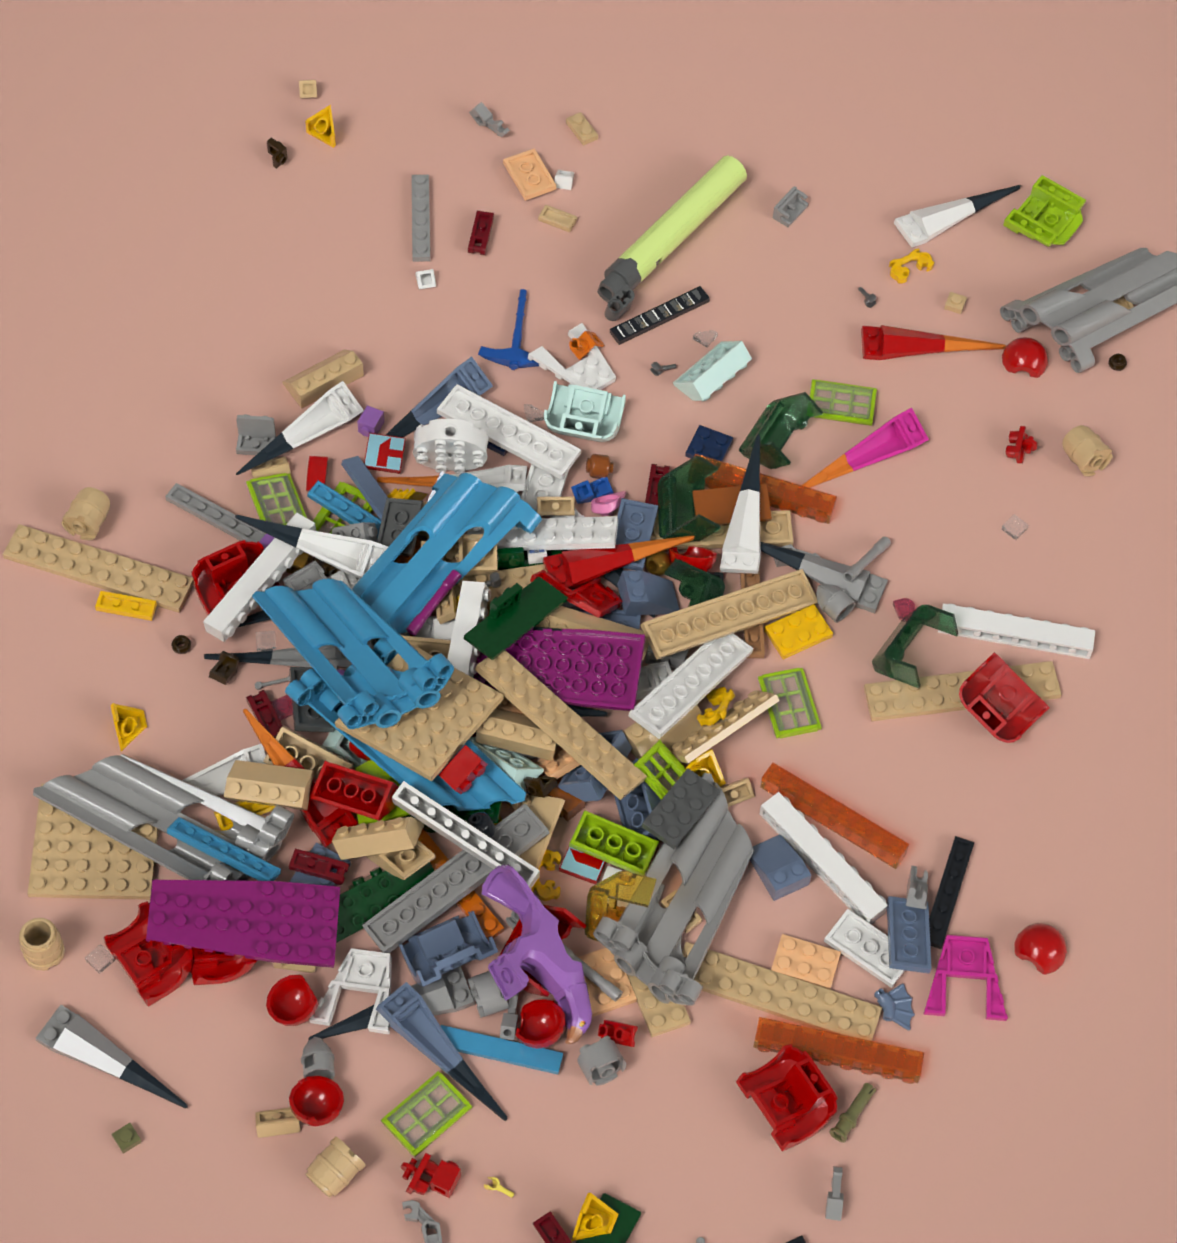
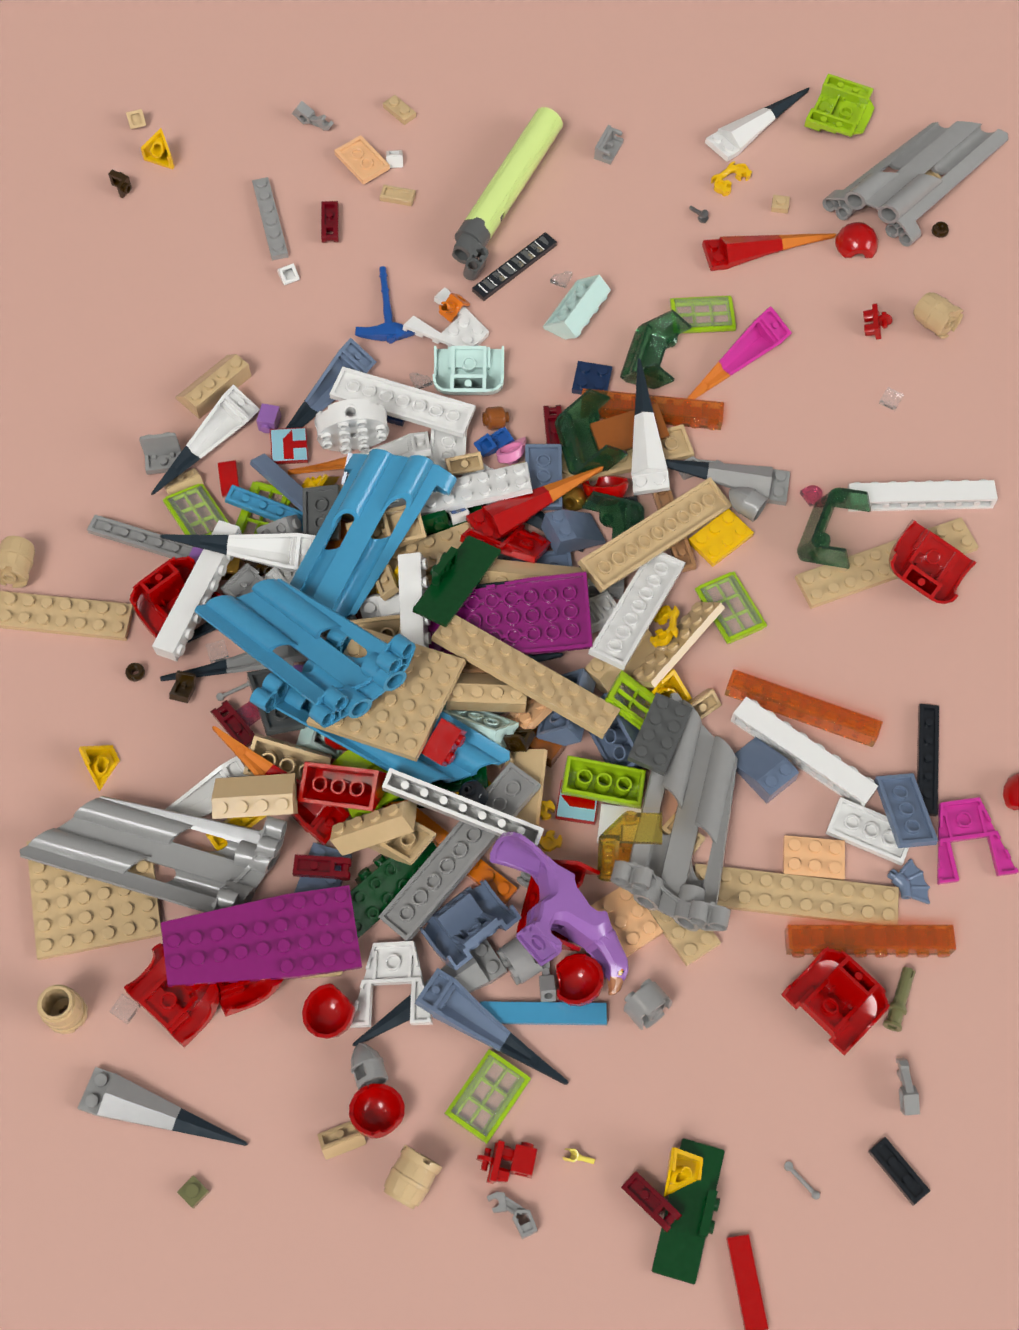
camera: 10 degrees left, 5 degrees up
(126, 605) = (72, 644): yellow plate -> none
(223, 850) = (224, 873): dark azure tile -> none
(447, 585) = (364, 600): magenta piece -> none
(495, 580) = (425, 547): flat silver hand -> none
(605, 985) = (631, 926): light grey piece -> none
(618, 1032) = (656, 971): red hips -> none
(657, 369) = (525, 317): flat silver hand -> none
(877, 549) = (761, 467): light grey piece -> none
(917, 889) = (900, 765): light grey hinge -> none

